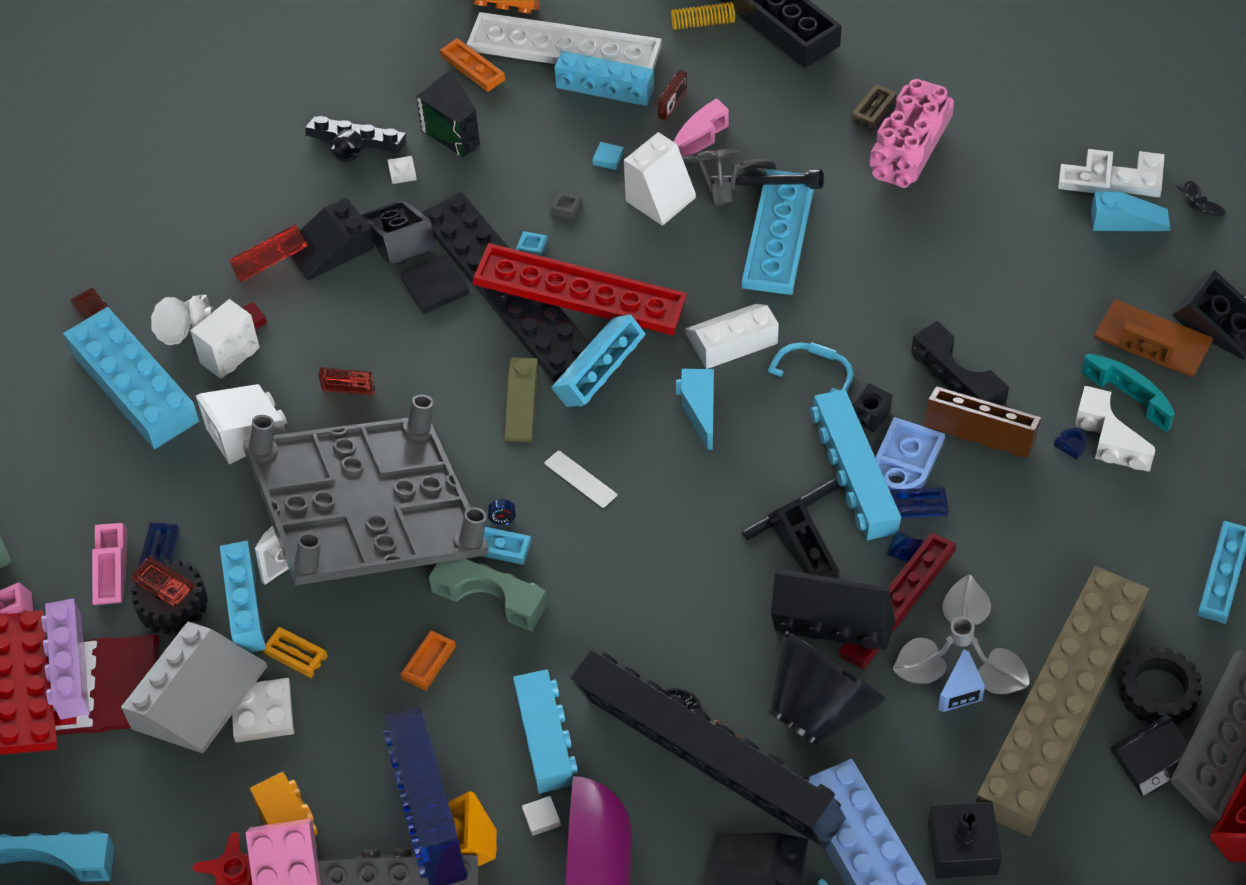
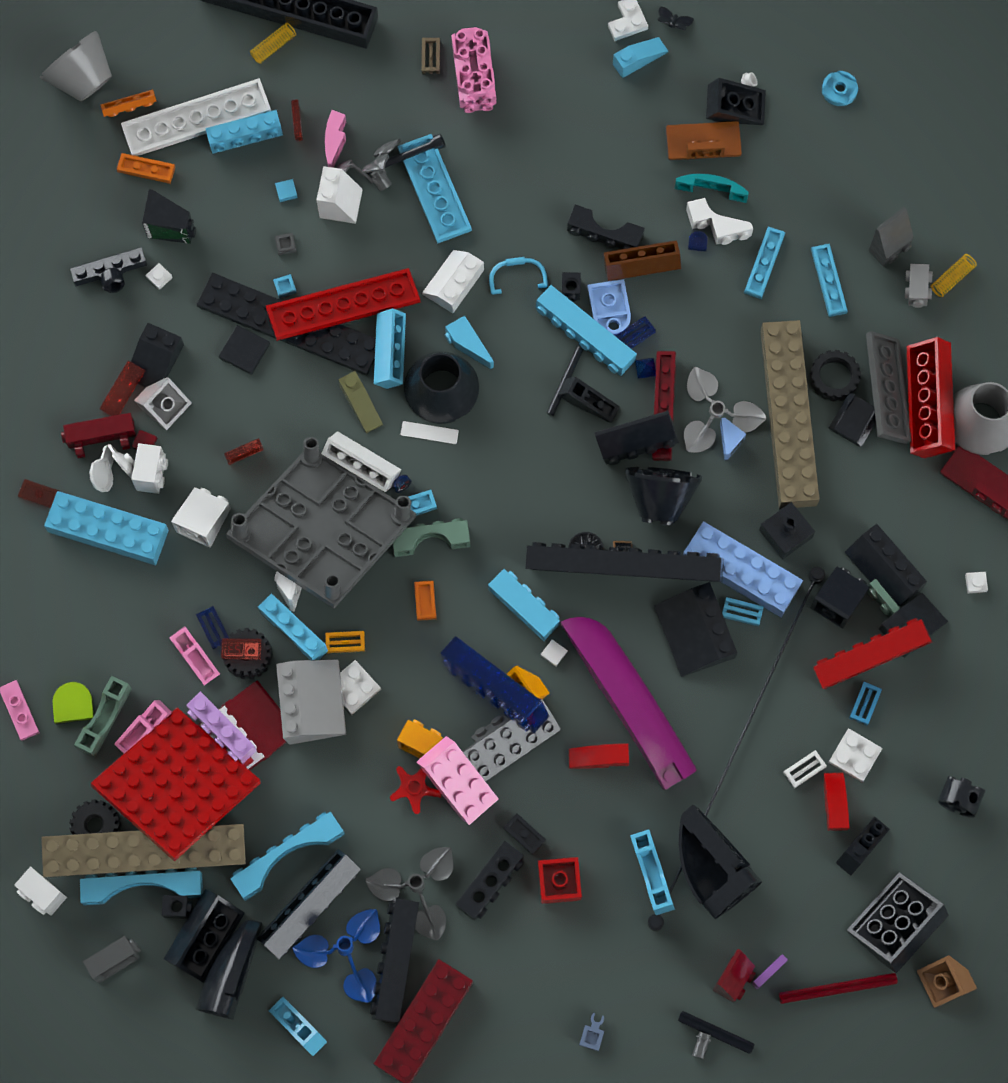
camera: 35 degrees left, 20 degrees up
(208, 279) = (99, 431): none -> dark red brick
(301, 287) = (163, 402): none -> light grey slope
(400, 232) = (194, 324): black slope -> none
(470, 459) = (361, 461): none -> white brick
(636, 449) = (445, 405): none -> black cone
(1090, 179) = (601, 38): white plate -> none
(1146, 508) = (764, 262): none -> medium azure tile

